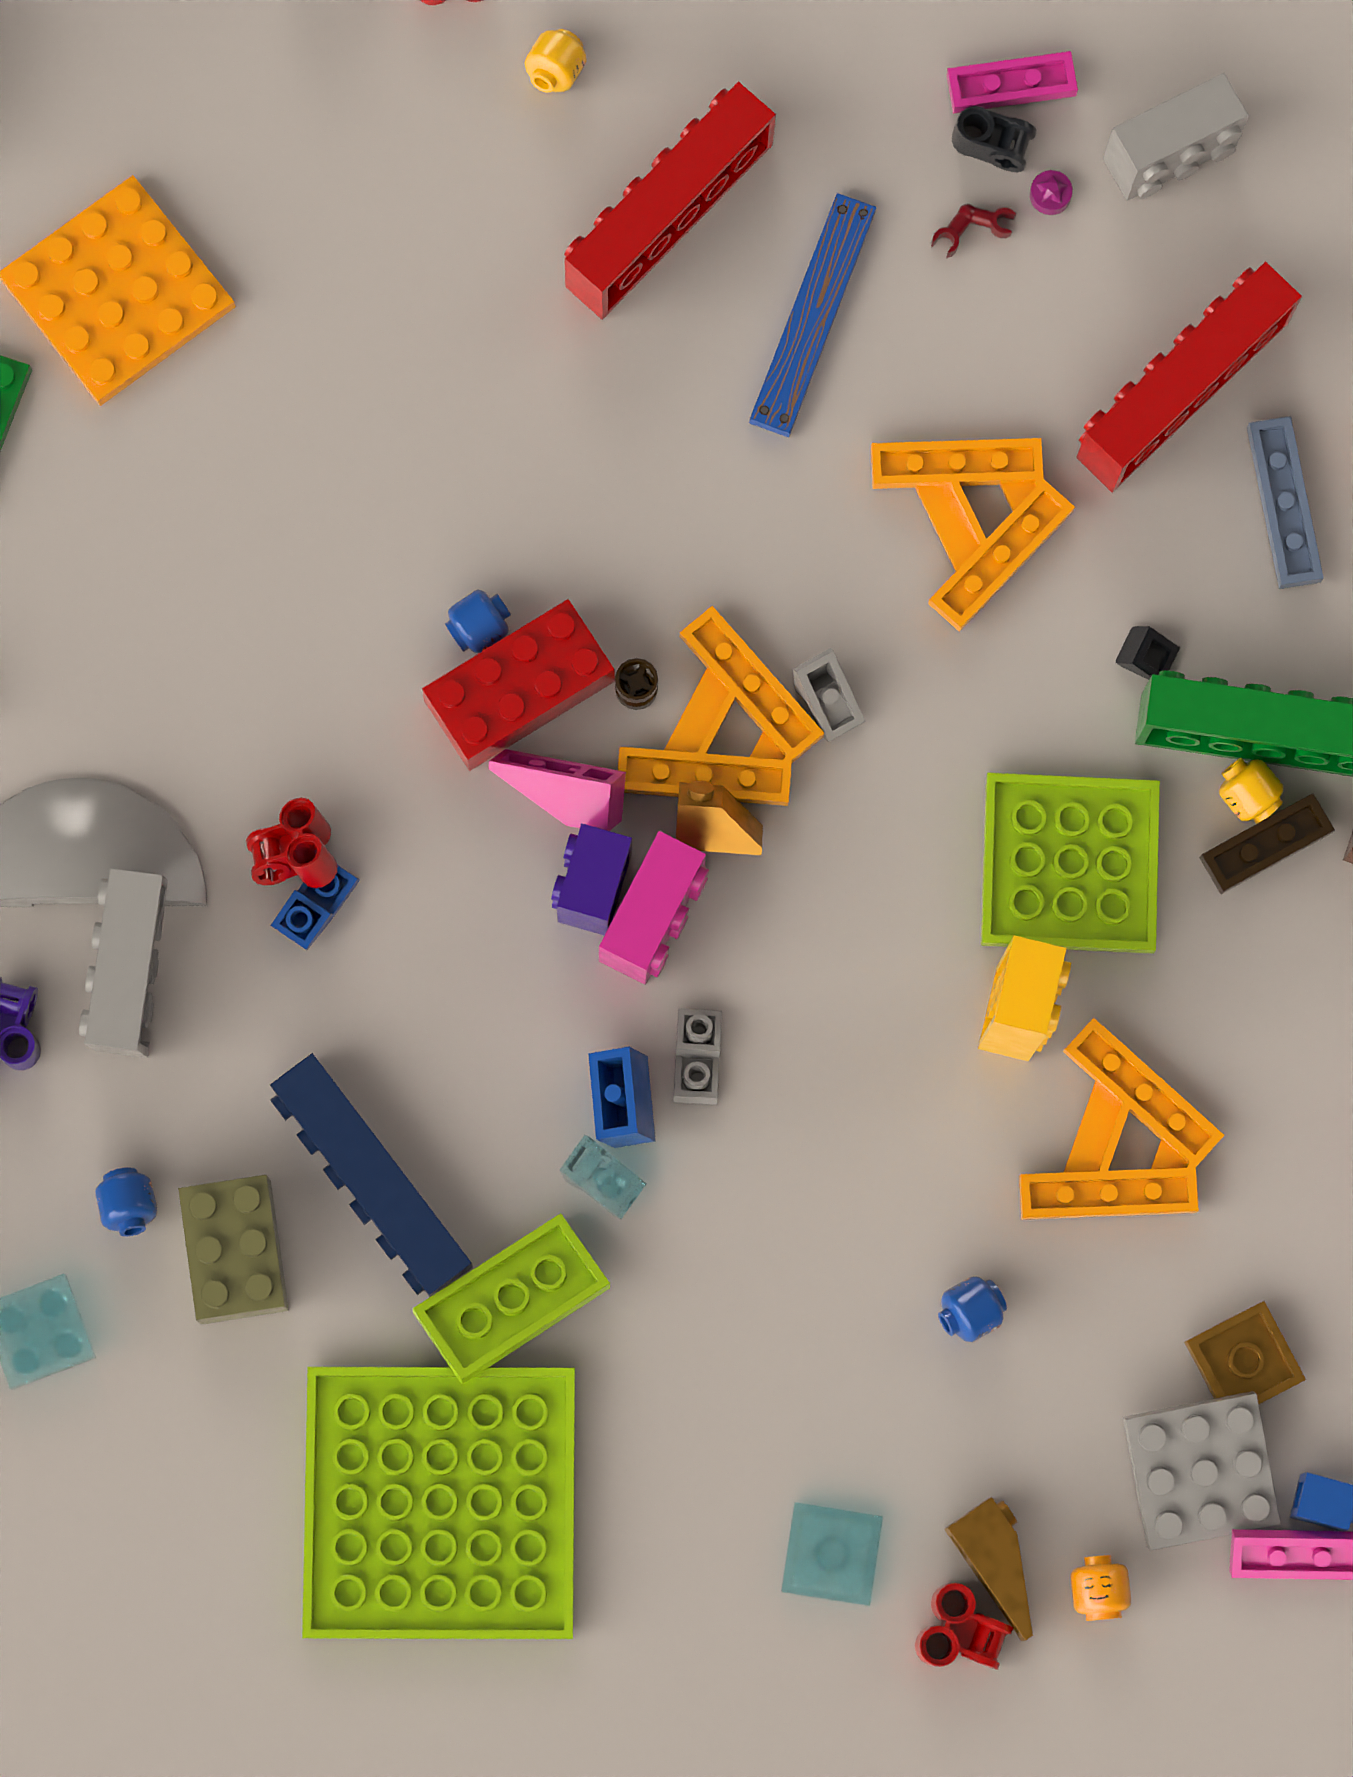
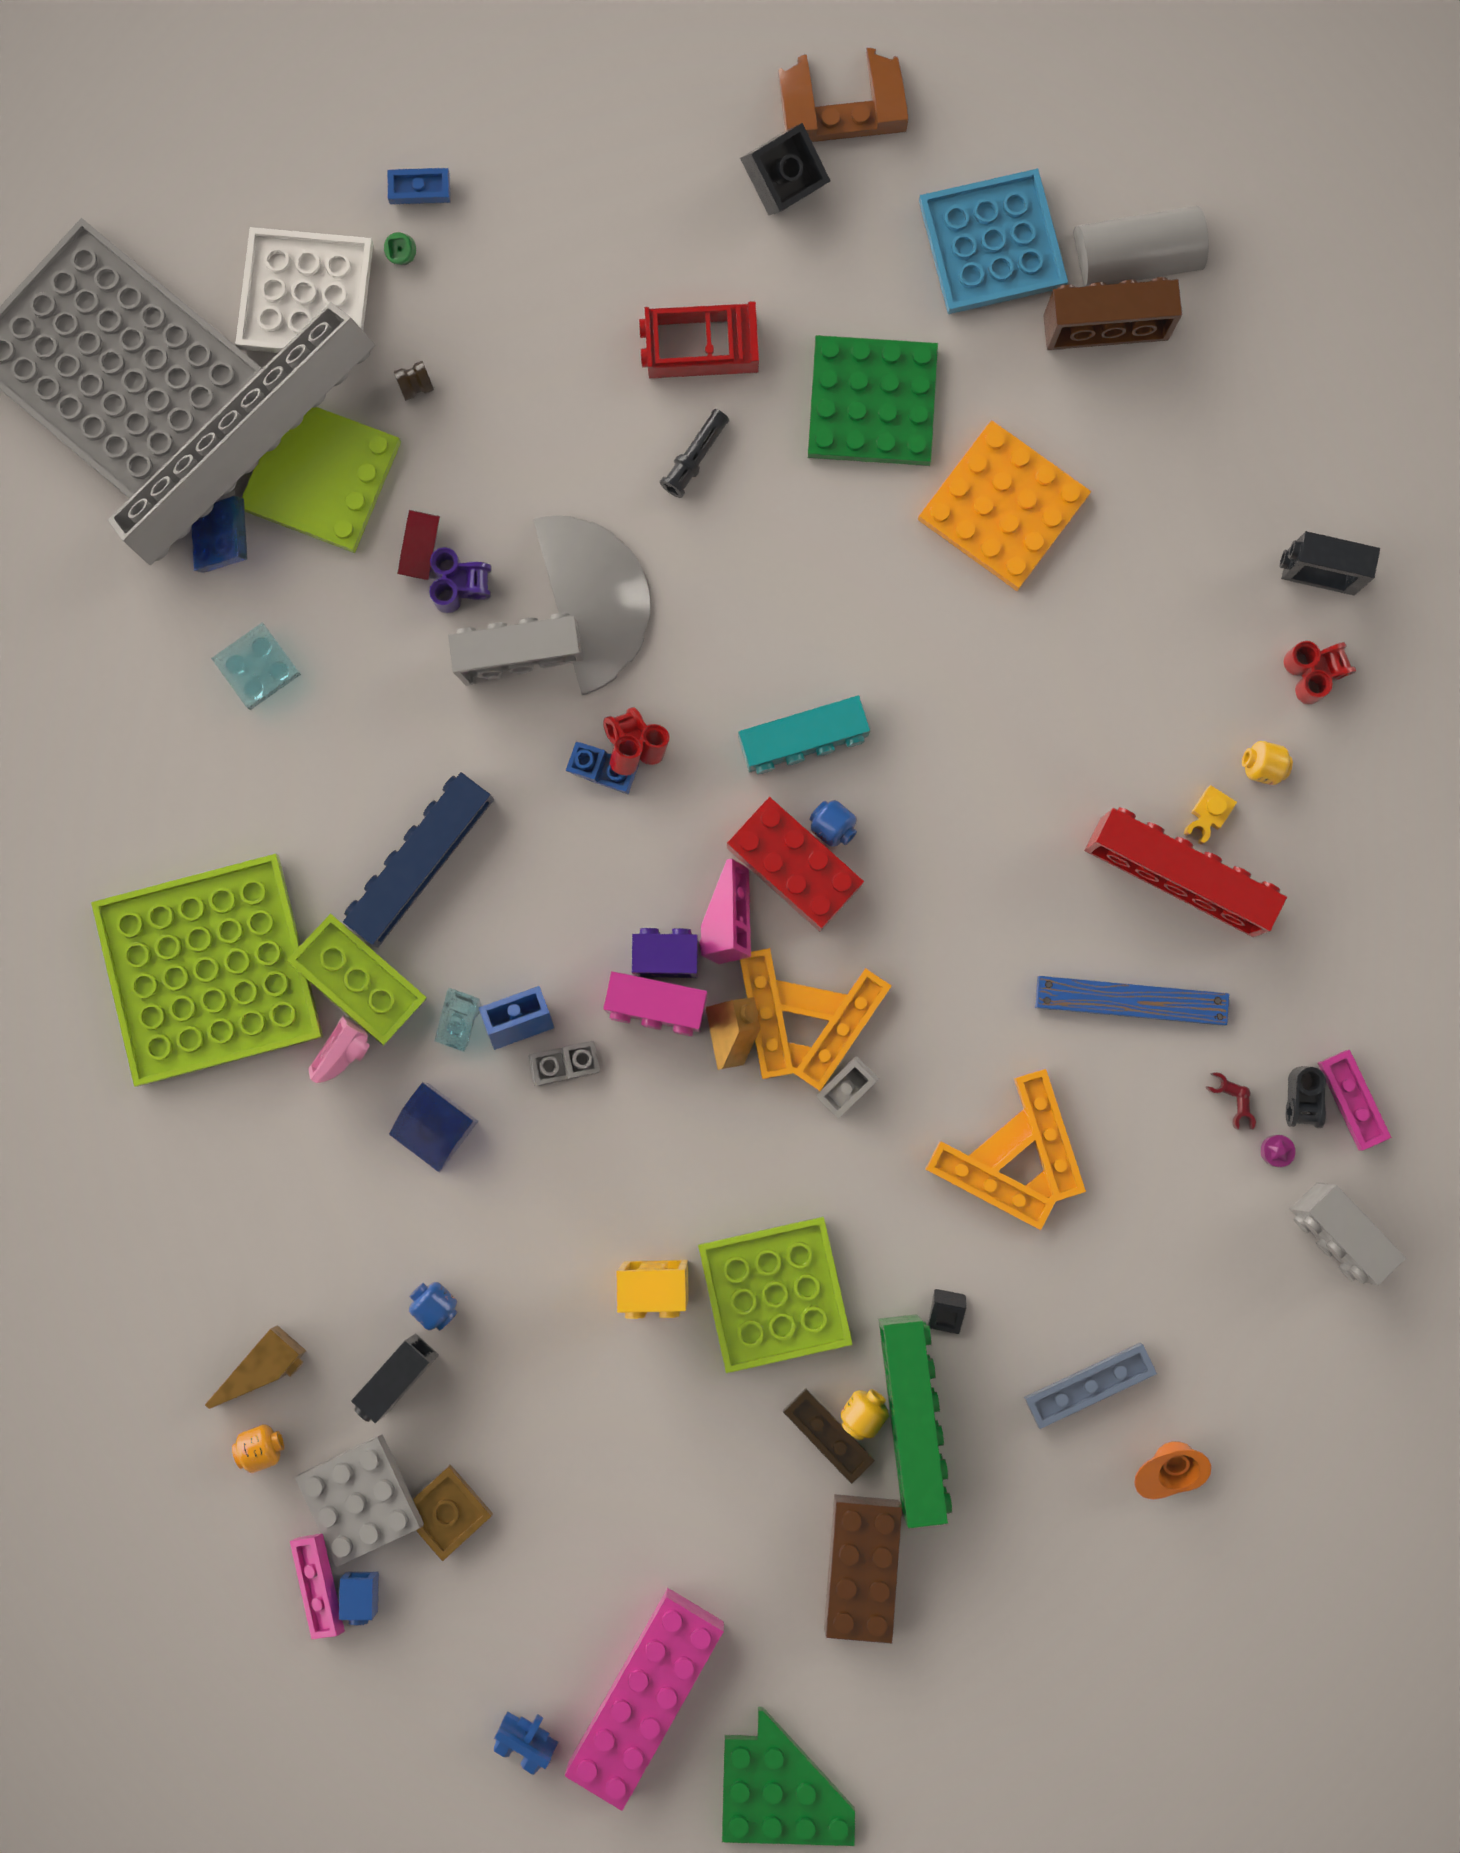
camera: 80 degrees right, 5 degrees up
(126, 1201) = (358, 698): blue head -> none
(233, 1249) = (342, 780): olive brick -> none
(348, 627) = (804, 734): none -> teal brick
(597, 147) = (1211, 811): none -> yellow plate
(600, 1345) = (342, 1047): none -> bright pink slope
(637, 675) = (823, 945): dark brown wheel -> none
(735, 1250) = (432, 1126): none -> clear blue slope
(831, 1554) = (239, 1251): clear light blue plate -> none
(964, 1632) = (204, 1363): red piece -> none
(1055, 1378) = (394, 1379): none -> black brick
(1122, 1087) = (545, 1364): light orange plate -> none
(1188, 376) = (1169, 1292): red brick -> none

